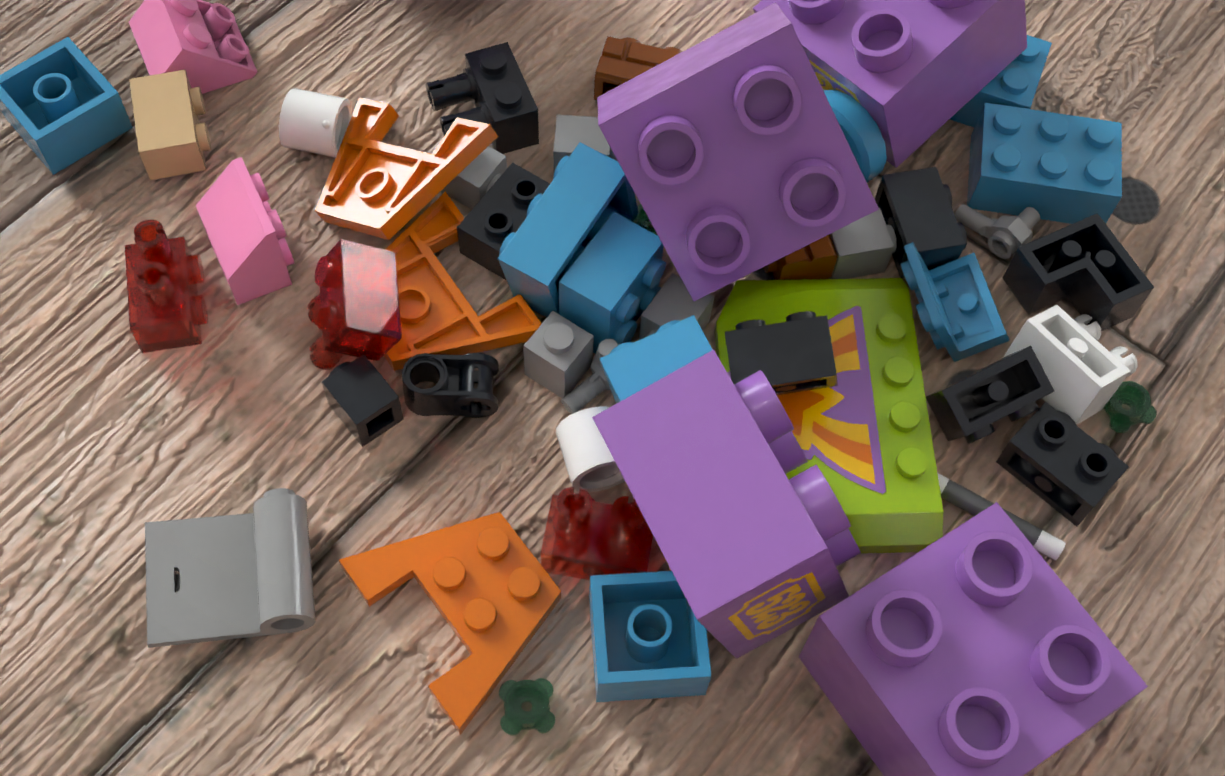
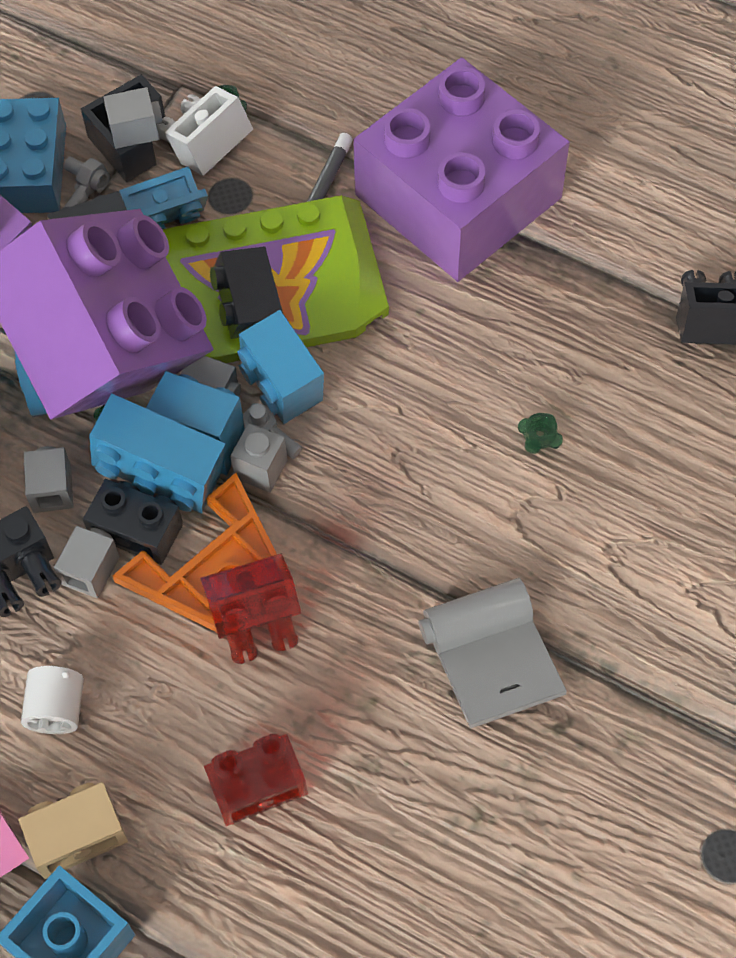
camera: 95 degrees left, 0 degrees up
(245, 233) = (189, 718): bright pink slope -> none
(362, 399) = (327, 592): black brick -> none
(385, 185) = (117, 623): orange wing -> none
(454, 385) = (299, 528): black piece -> none
(482, 587) = (459, 479): orange wing -> none
(586, 453) = (337, 417): white piece -> none
(594, 536) = (409, 402): clear red brick -> none
(645, 638) = (477, 356): dark azure brick -> none
(717, 497) = (395, 286): medium lavender brick -> none
(990, 394) = (242, 172): black brick -> none
(1061, 463) = (283, 135): black brick -> none
(1066, 254) = (133, 117): none -> light grey brick

